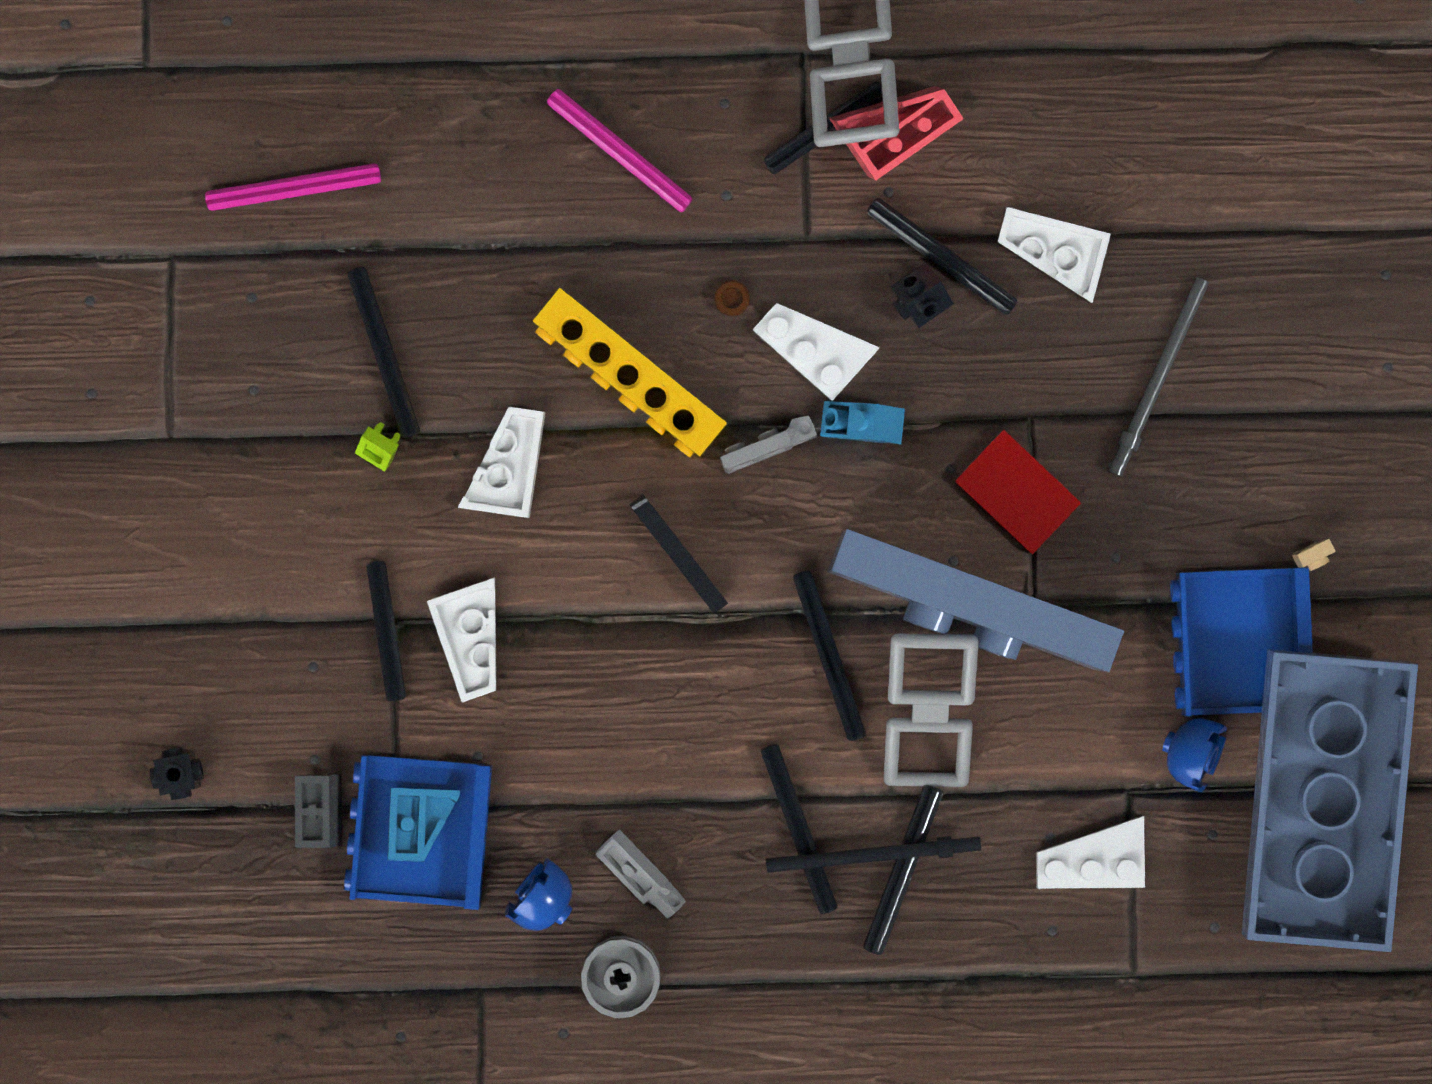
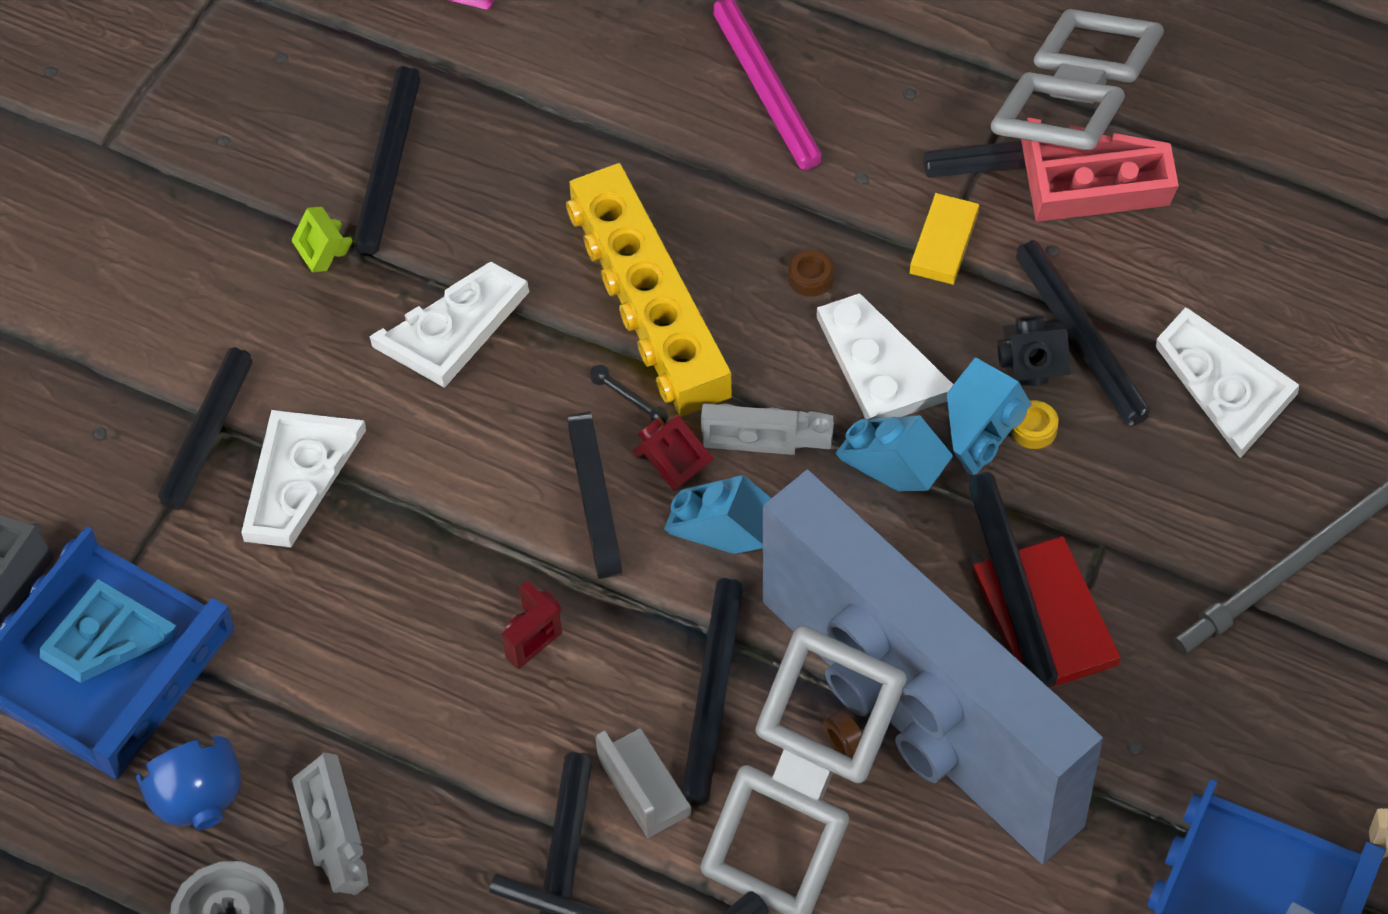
camera: 30 degrees right, 30 degrees down
(630, 453) = (601, 376): none -> black hinge
(690, 678) = (533, 630): none -> dark red bracket
(712, 494) = (672, 450): none -> dark red bracket
(773, 528) = (720, 515): none -> dark azure slope
(811, 223) = (944, 238): none -> yellow tile
(819, 743) = (642, 781): none -> light grey panel
(907, 365) = (983, 412): none -> dark azure slope
(938, 655) = (842, 733): none -> reddish brown tile
(943, 347) = (1038, 426): none -> yellow tile
(987, 484) = (1012, 578): none -> black axle

